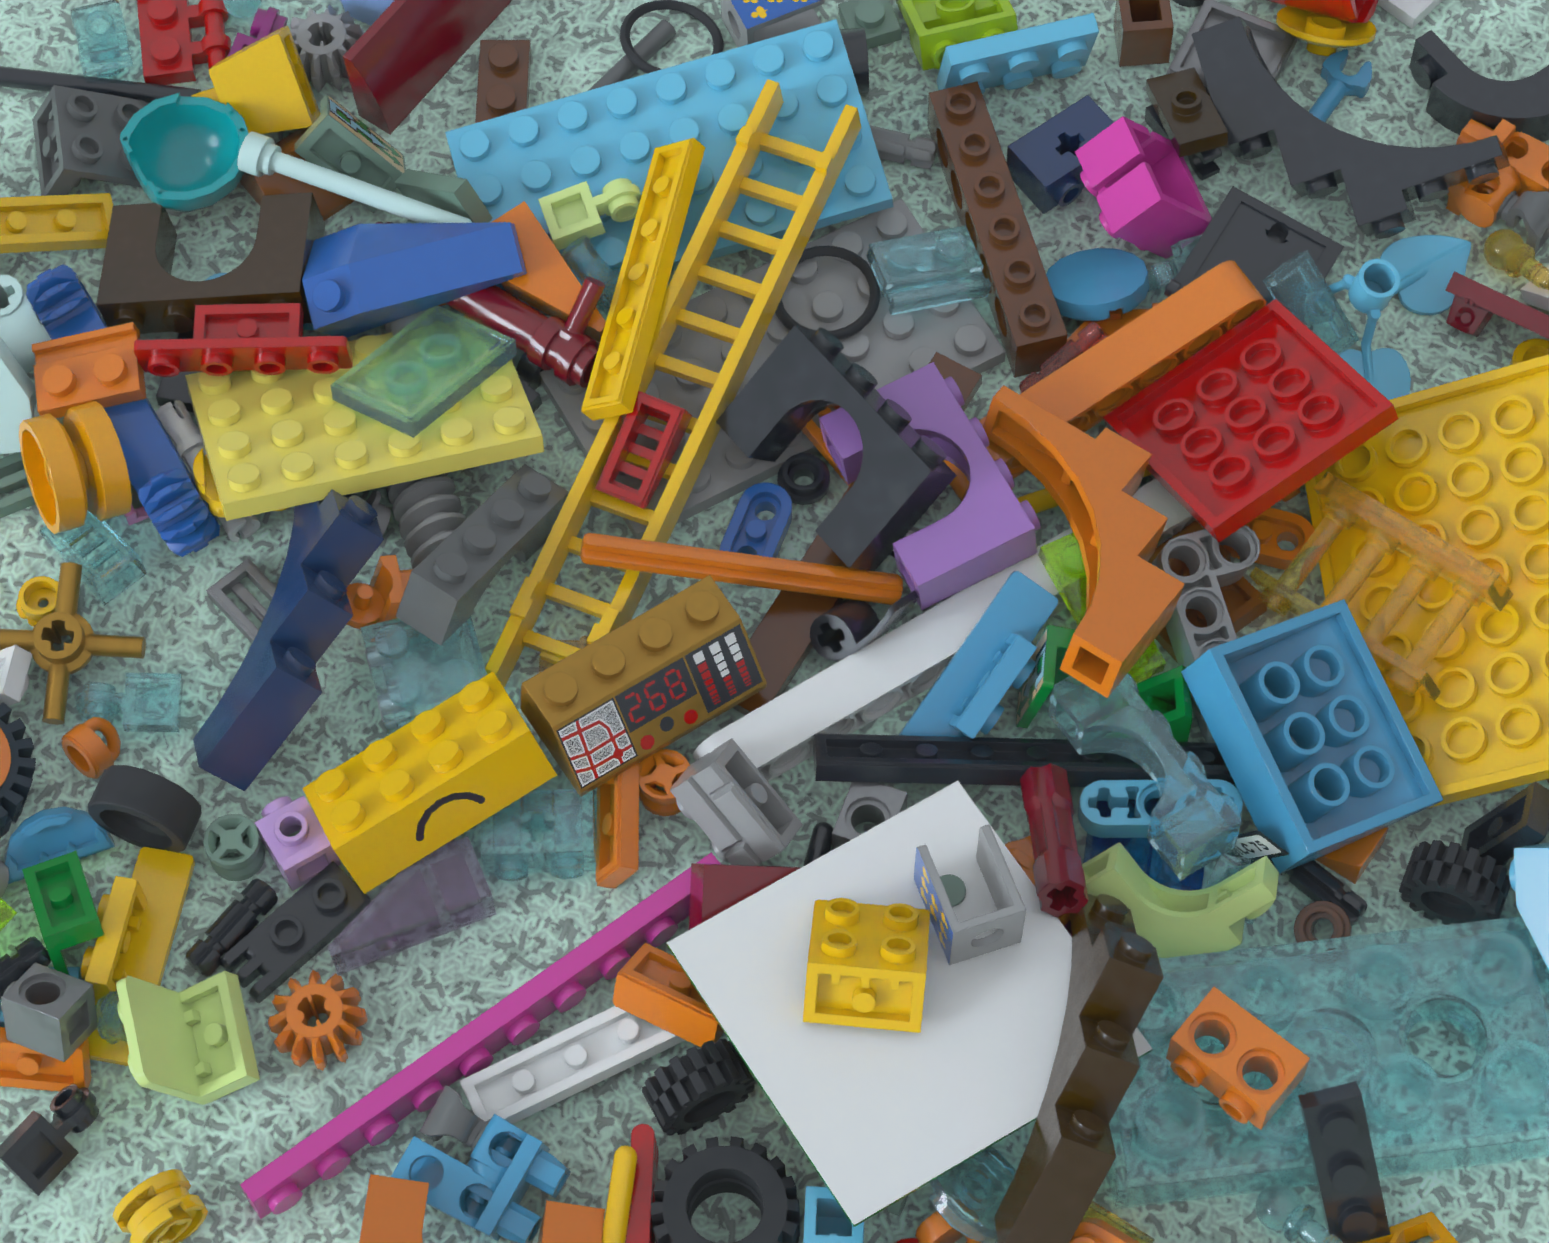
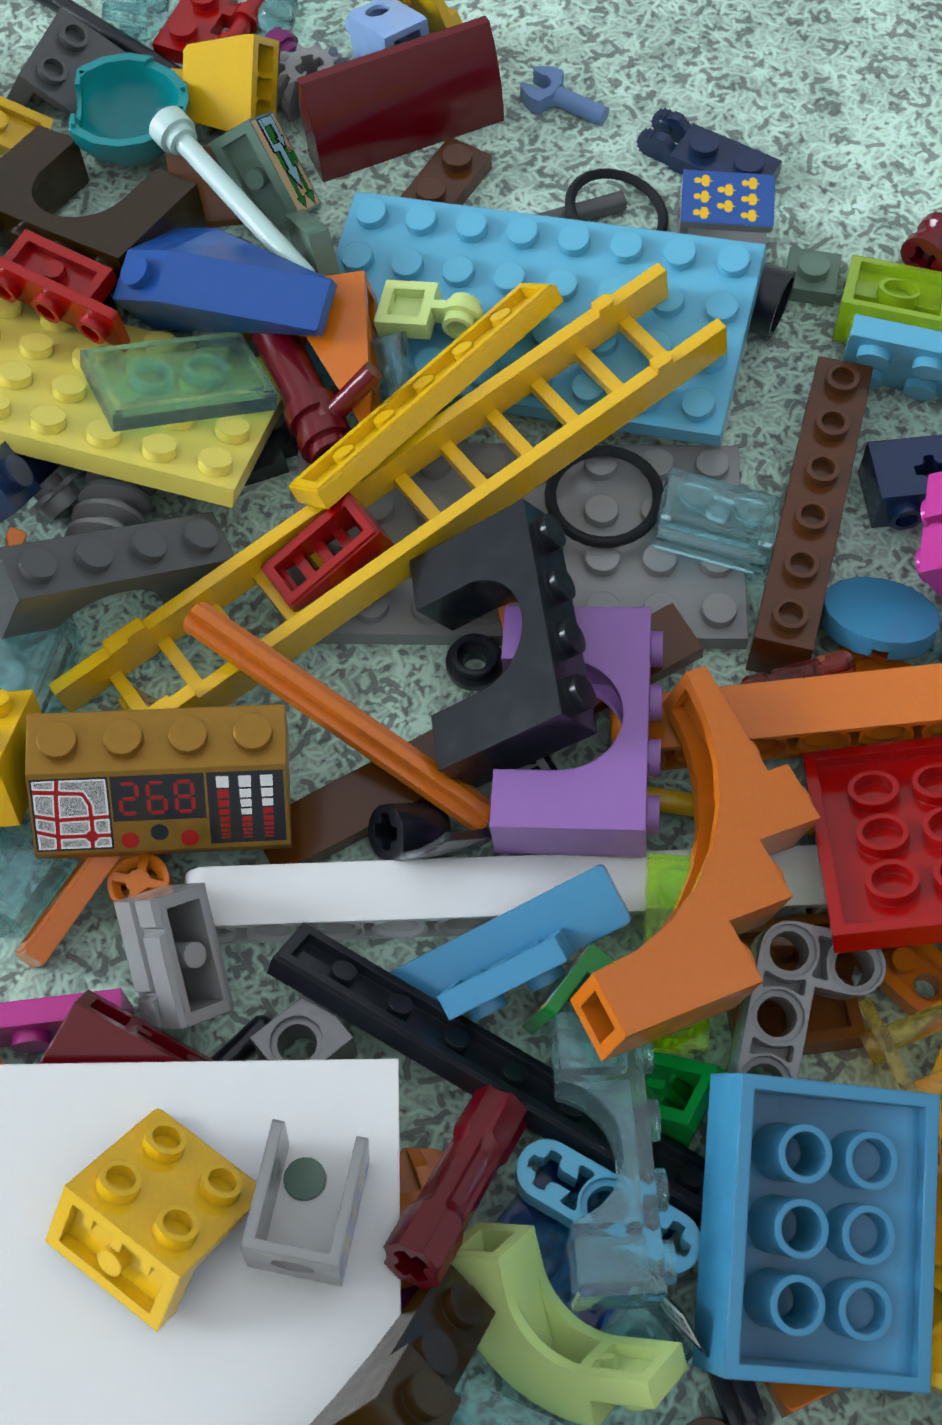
camera: 30 degrees right, 0 degrees up
(756, 536) = (387, 684): blue plate -> none
(898, 147) = (766, 399): light grey axle -> none

